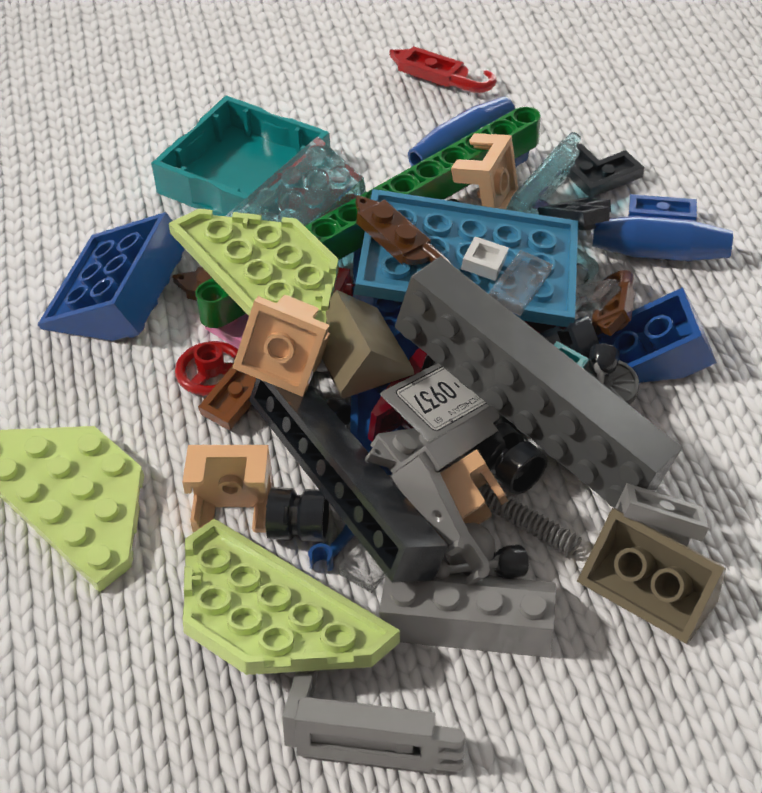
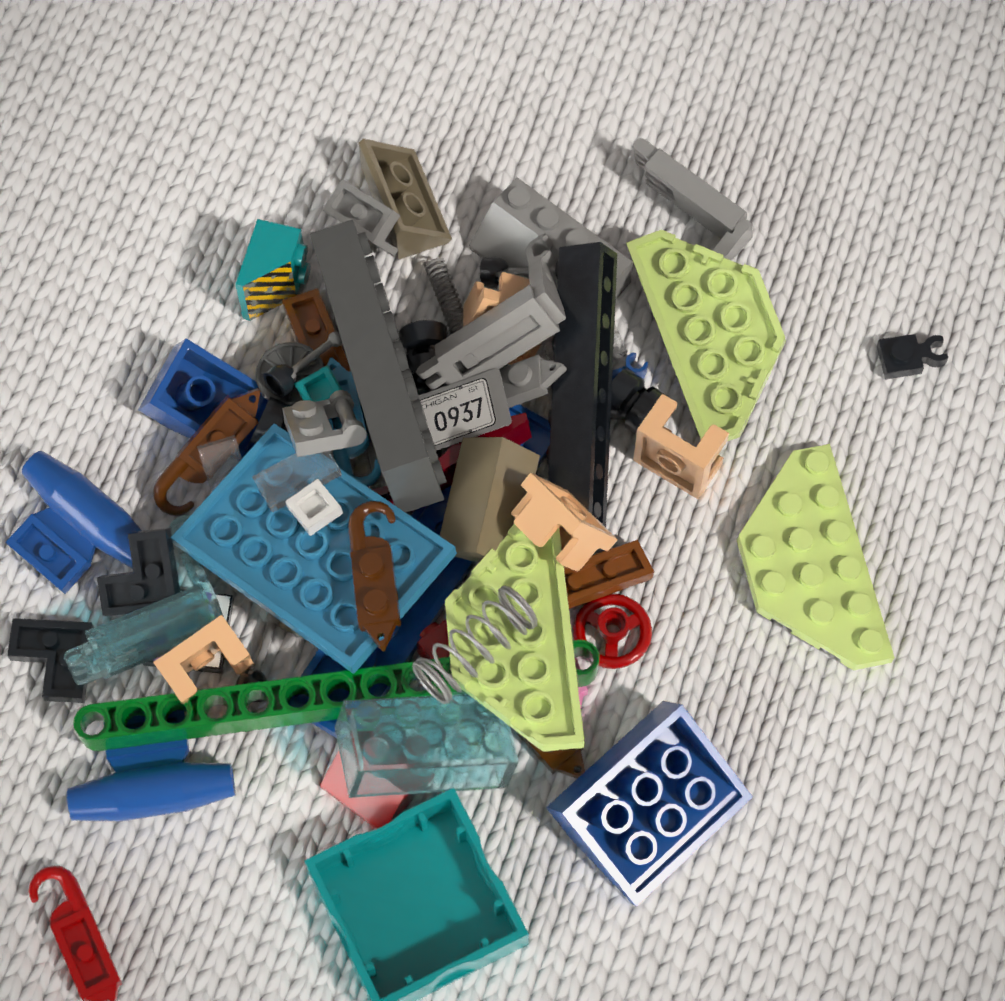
camera: 150 degrees left, 20 degrees up
(56, 712) = (905, 357): none -> black plate
(284, 269) = (513, 616): none -> light grey piece
(537, 305) = (311, 429): none -> light grey plate
(706, 441) = (271, 268): none -> teal slope

